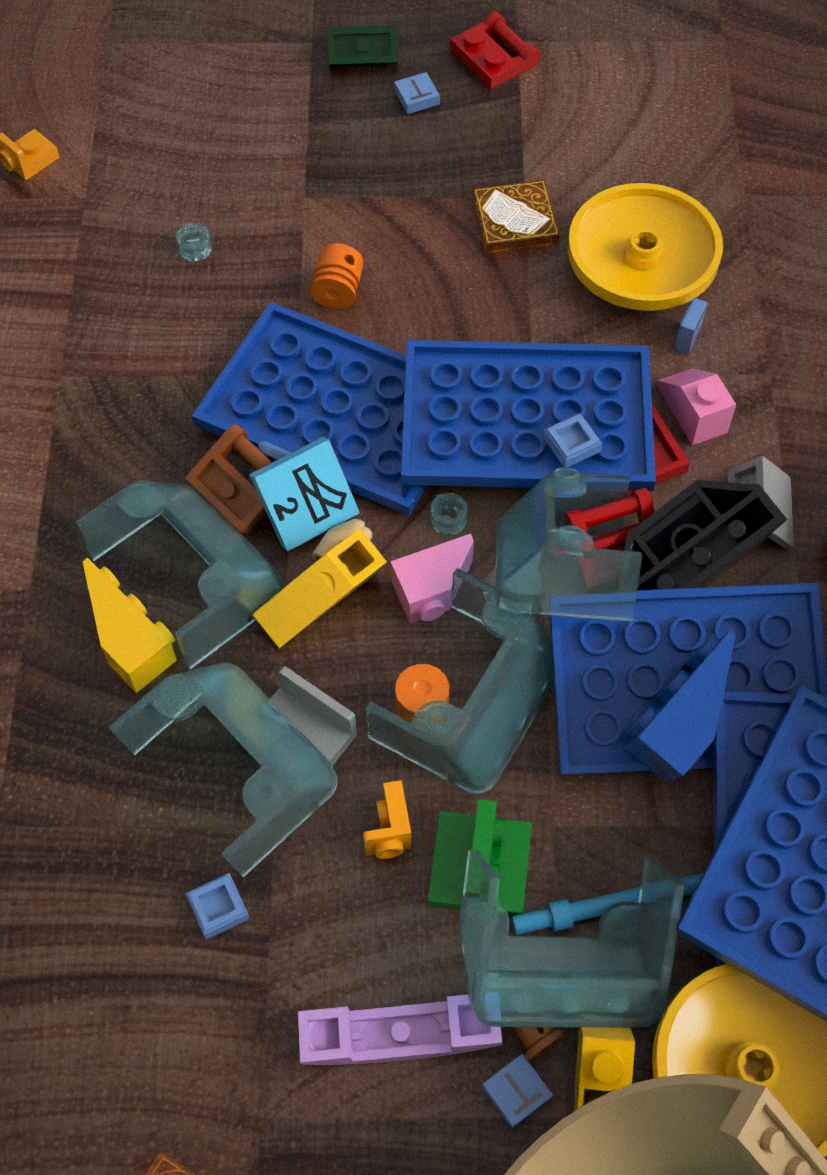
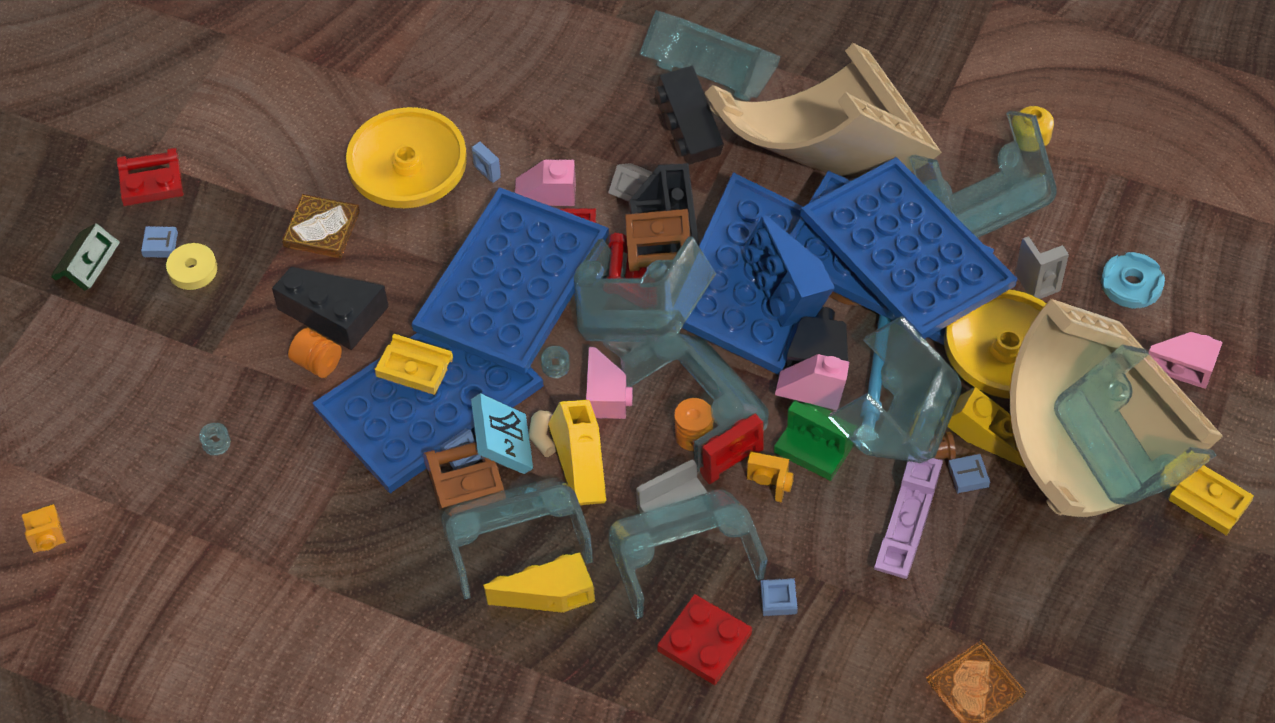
camera: 65 degrees left, 5 degrees down
(122, 839) = (704, 639): none -> red plate
(357, 368) = (414, 364): none -> yellow plate
(401, 131) = (194, 277): none -> light yellow piece
(406, 265) = (331, 304): none -> black wedge
(410, 760) = (732, 447): none -> red plate
(556, 822) = (814, 381): none -> bright pink slope
(572, 440) = (554, 258): medium blue tile -> none
(622, 808) = (819, 336): none -> black torso
(668, 529) = (652, 230): none -> dark orange plate

